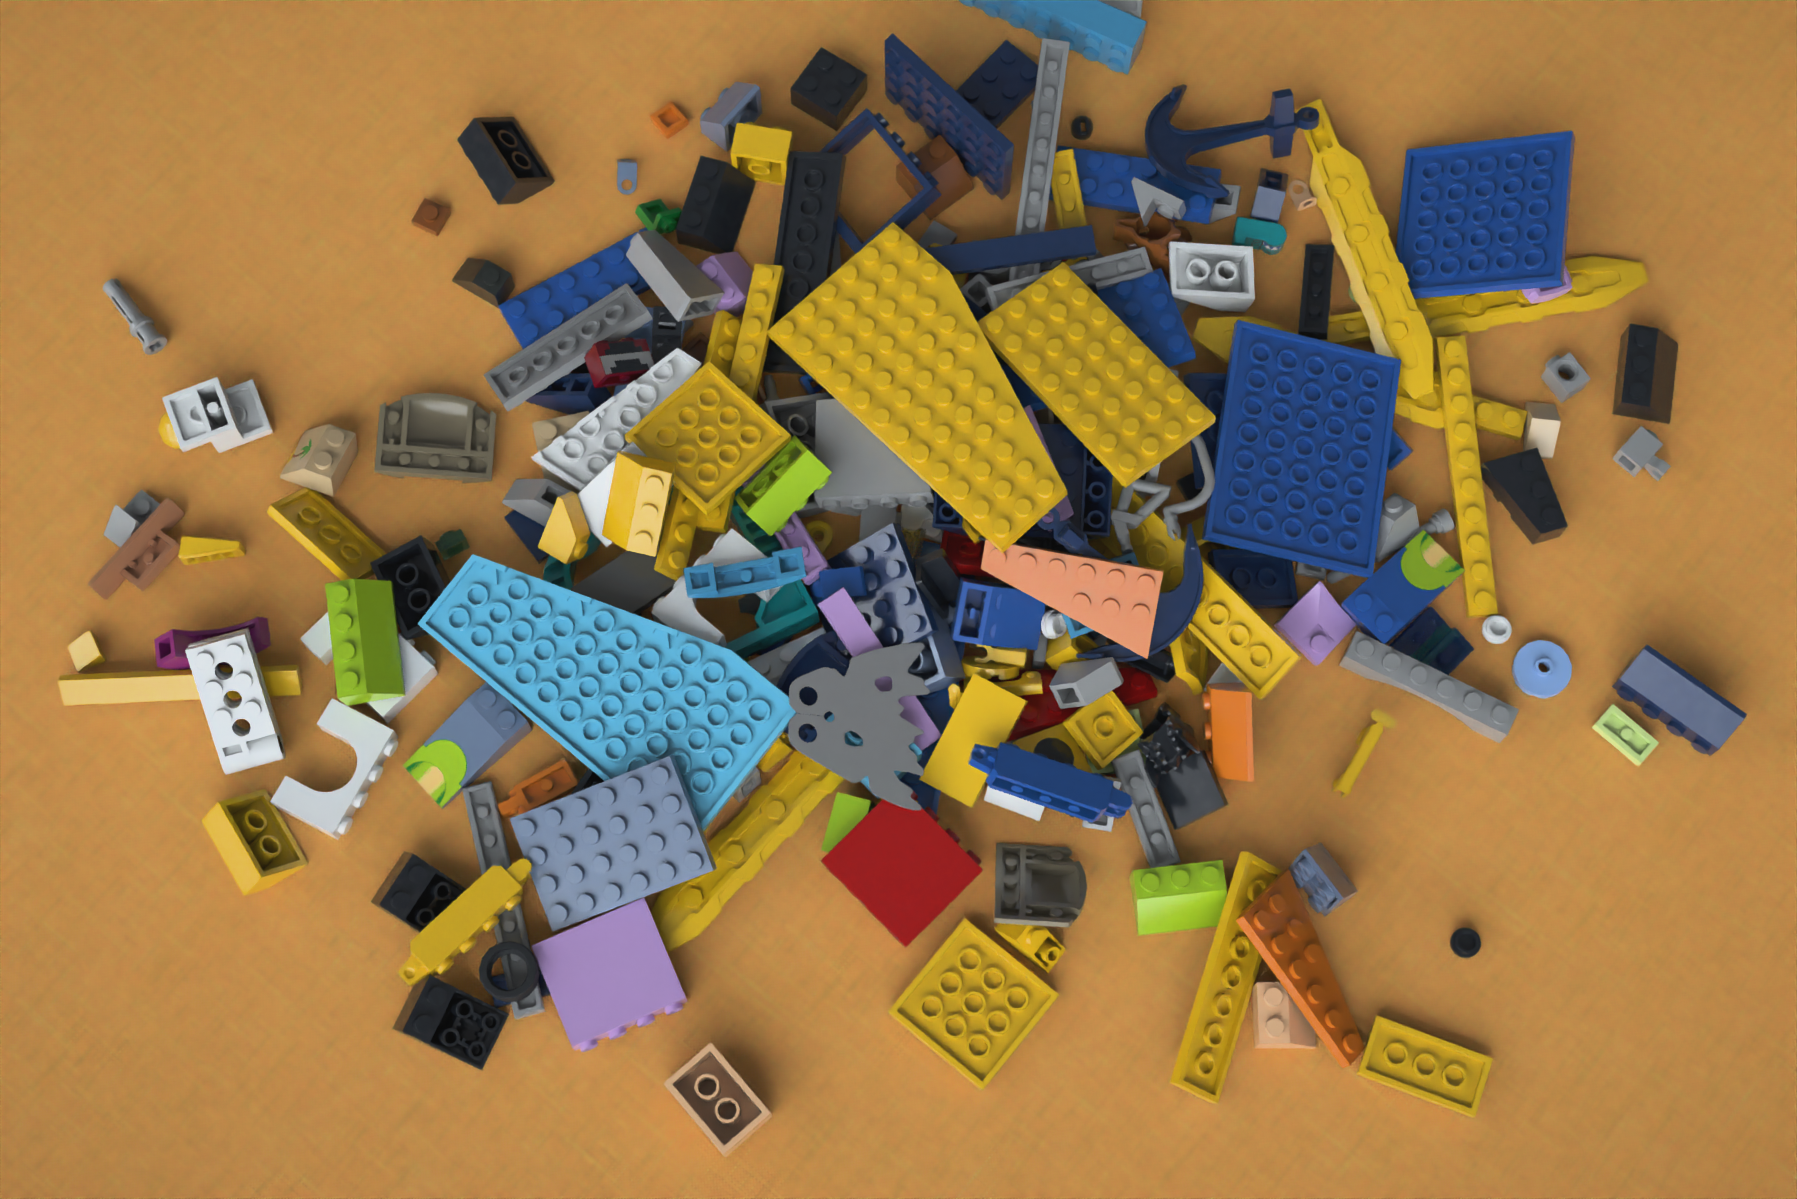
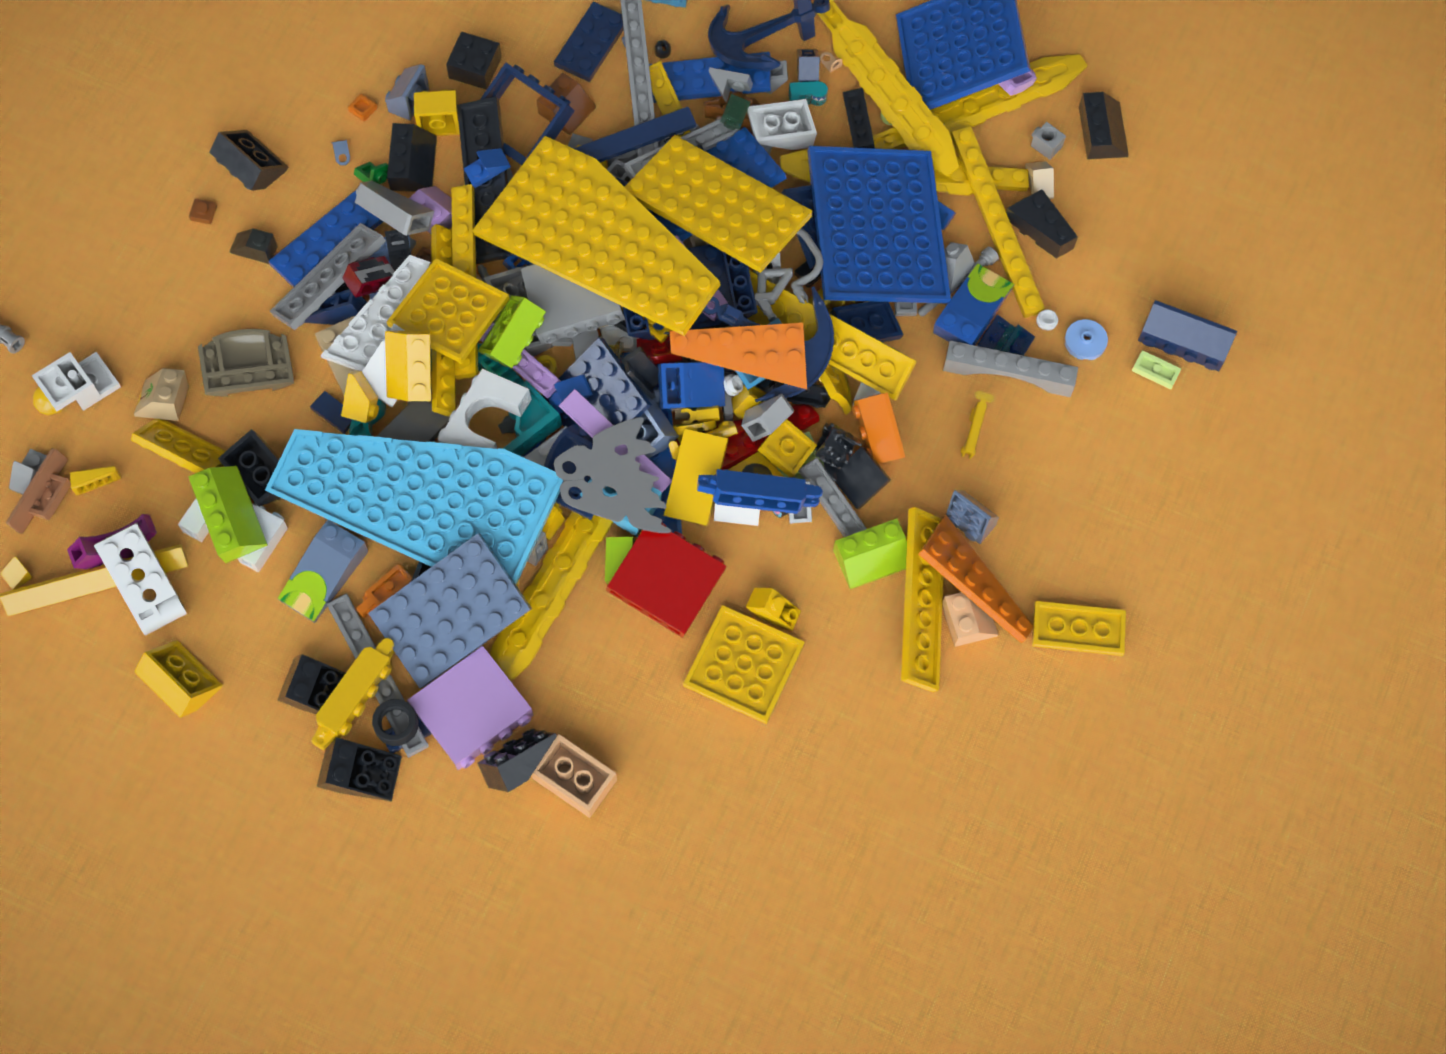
camera: 15 degrees left, 5 degrees down
(333, 810) = (233, 641): white arch -> none
(452, 543) = (275, 433): clear green plate -> none
(534, 498) = (329, 386): light grey slope -> none
(650, 1062) = (516, 761): none -> black slope
(745, 577) = (501, 398): dark azure slope -> none
(809, 246) = (488, 166): none -> blue slope
(946, 113) = (559, 51): dark blue plate -> none
(1037, 885) = (769, 567): dark tan slope -> none
(1151, 248) = (735, 112): none -> clear green brick
(1315, 624) = (920, 343): lavender plate -> none
(1465, 942) = (1084, 537): black plate -> none
(1640, 453) = (1114, 179): light grey brick -> none

